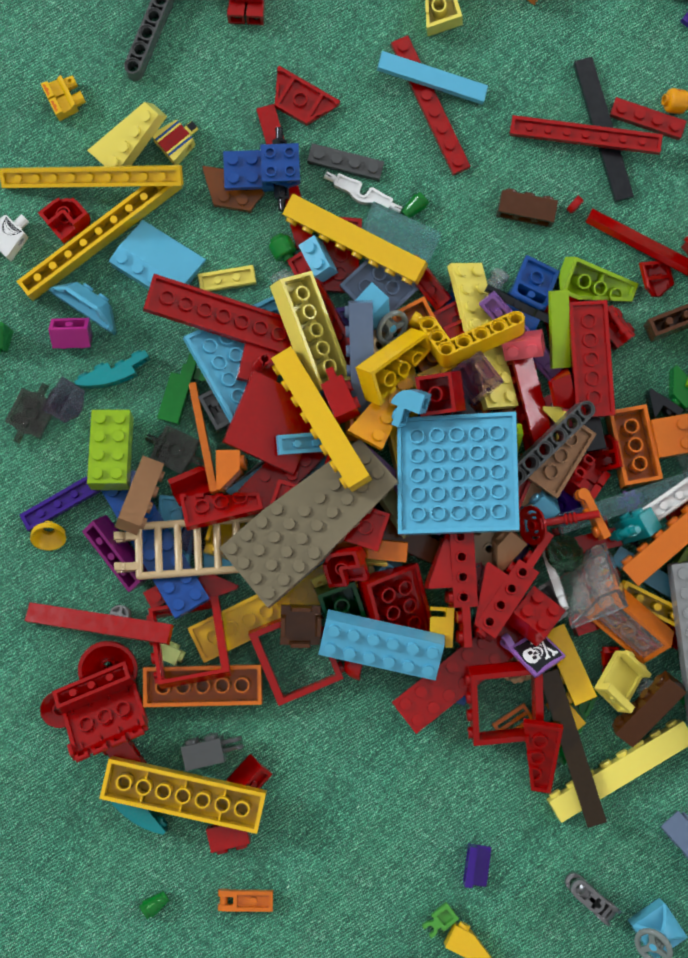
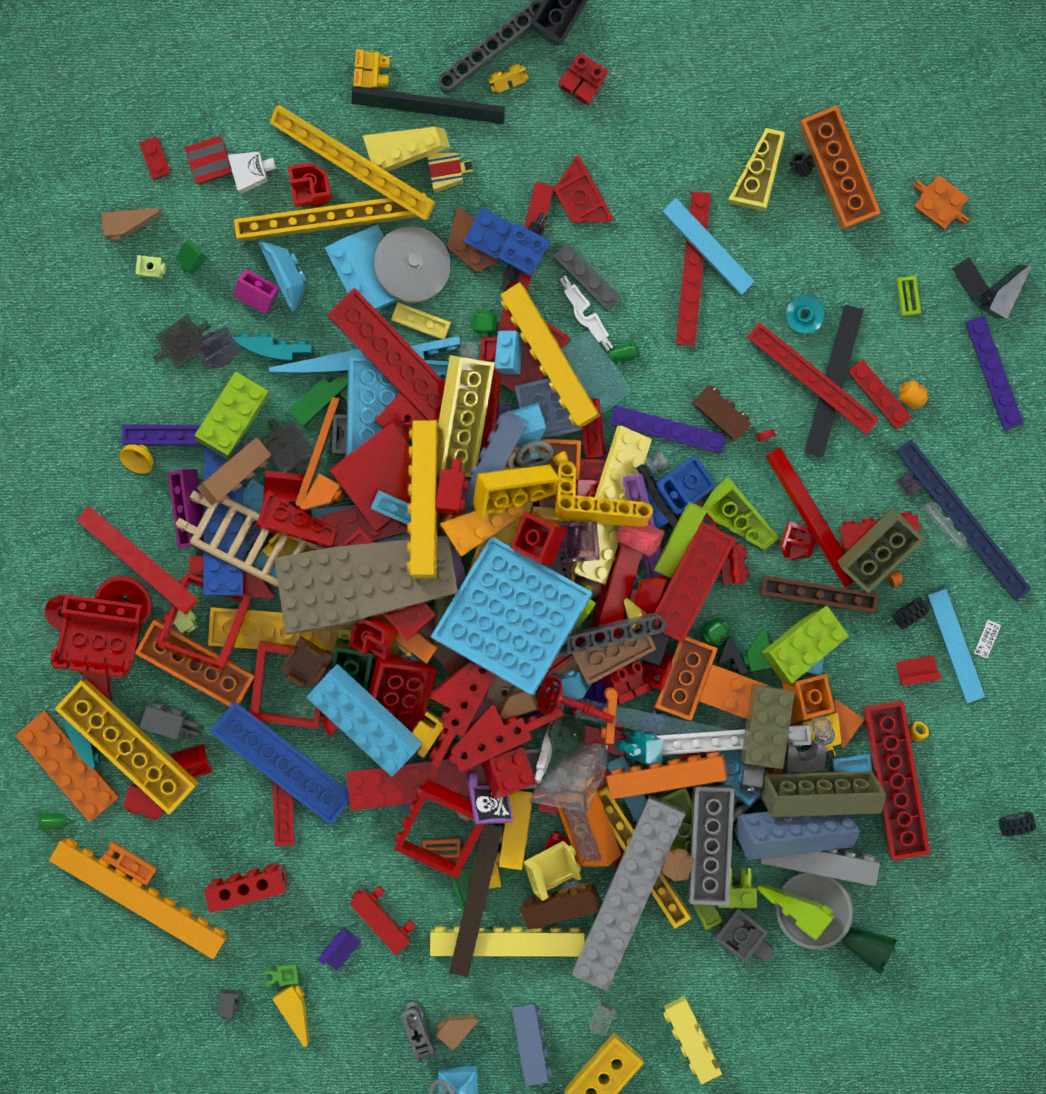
camera: 35 degrees right, 5 degrees up
(117, 611) = (162, 557): light grey wheel -> none
(128, 97) = (428, 105): none -> black tile
(134, 845) = (61, 761): none -> orange plate
(178, 350) = (339, 362): none -> medium azure slope
(187, 32) = (501, 79): none -> yellow hinge
(191, 234) = (411, 264): none -> light grey dish
(272, 927) = (138, 898): none -> light orange brick
(329, 727) = (281, 762): none -> blue plate
(346, 885) = (219, 899): none -> red brick
(353, 767) = (283, 816): none -> red plate
(406, 401) = (505, 530): medium azure brick -> none
(491, 248) = (667, 429): none -> dark purple plate
(498, 818) = (379, 919): none -> red brick
(542, 747) = (448, 888): red wing -> none
(546, 79) = (814, 312): none -> teal dish
(622, 875) = (455, 1029): none -> medium nougat slope
(627, 38) = (908, 297): none -> lime tile
(635, 392) = (716, 632): none -> green head

